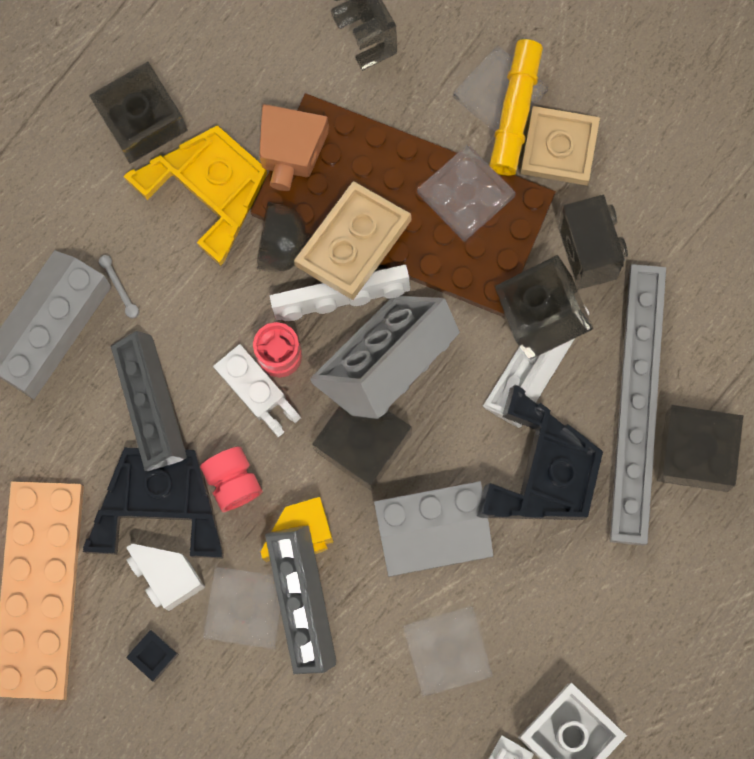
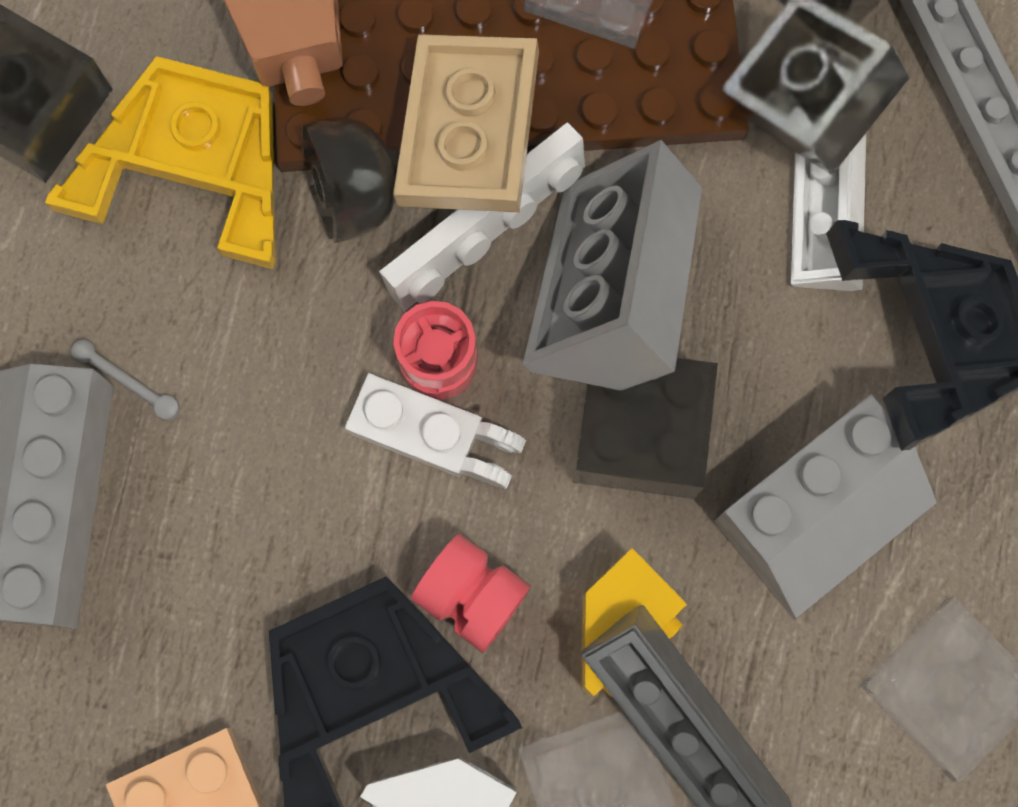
camera: 35 degrees left, 0 degrees up
(148, 401) = (269, 538): dark grey slope -> none

